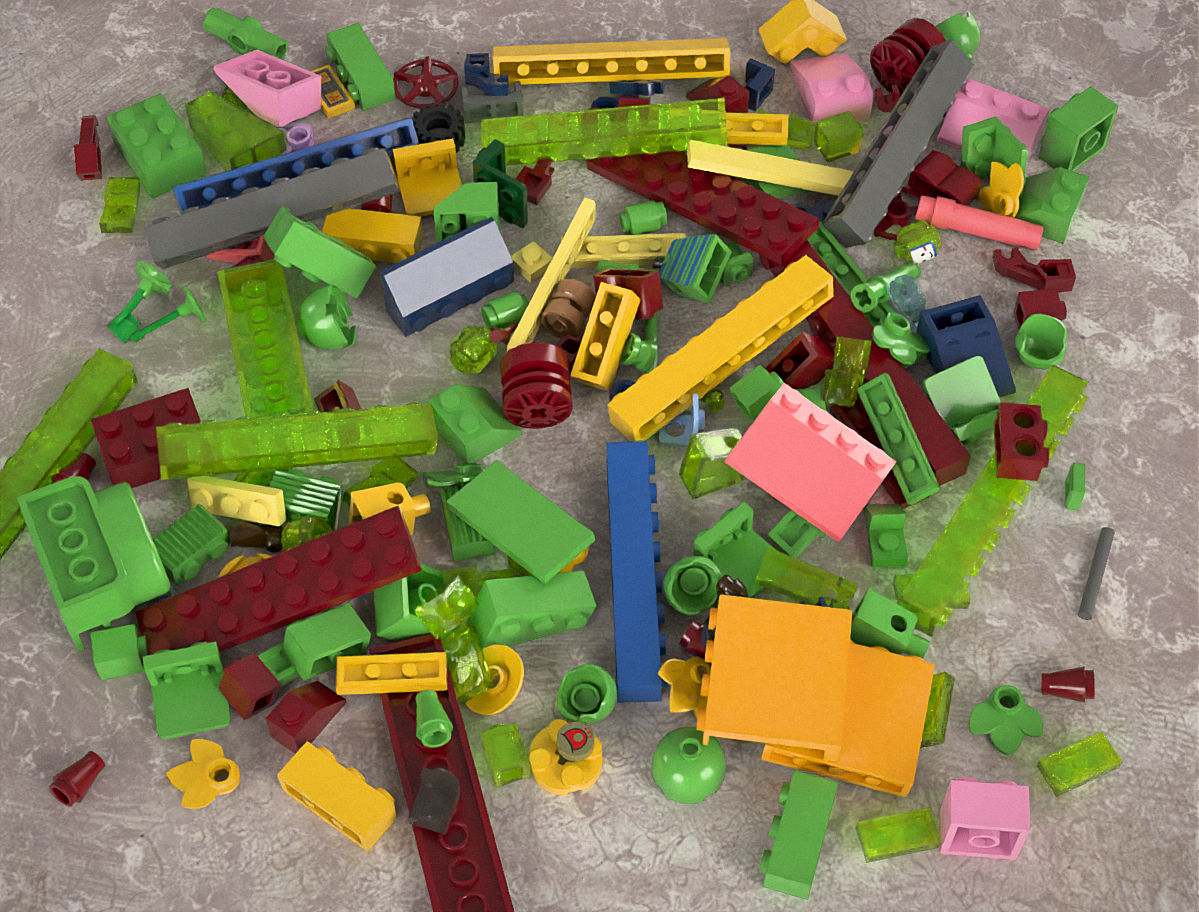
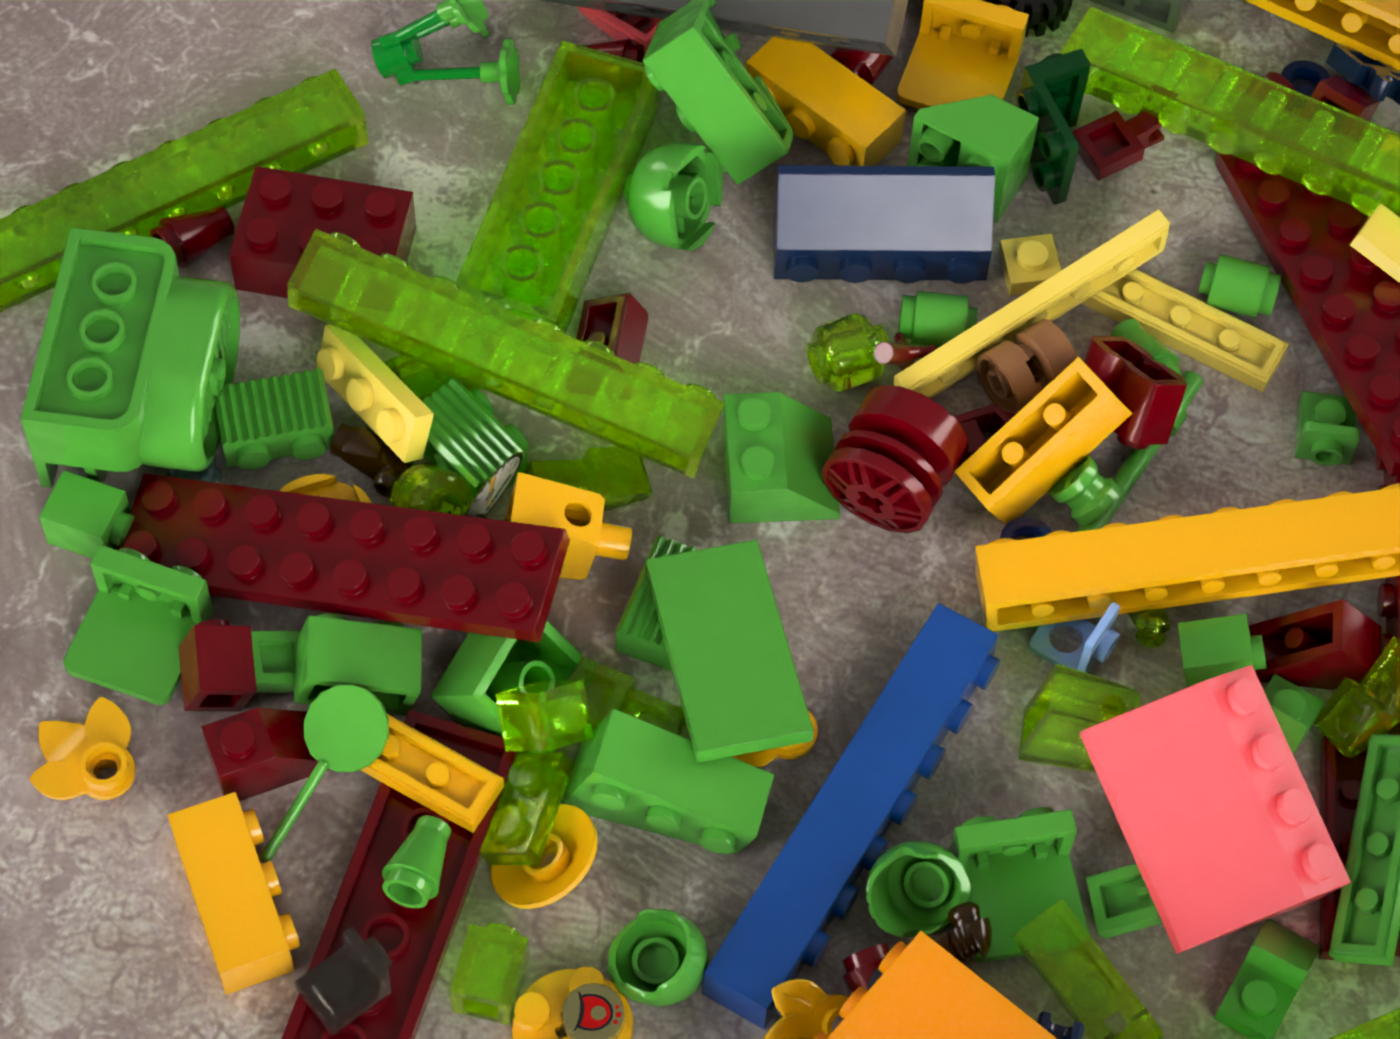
camera: 30 degrees right, 5 degrees up
(345, 676) = (344, 733): none -> bright green piece
(464, 474) = (697, 530): bright green plate -> none
(693, 266) = (1257, 405): bright green torso -> none

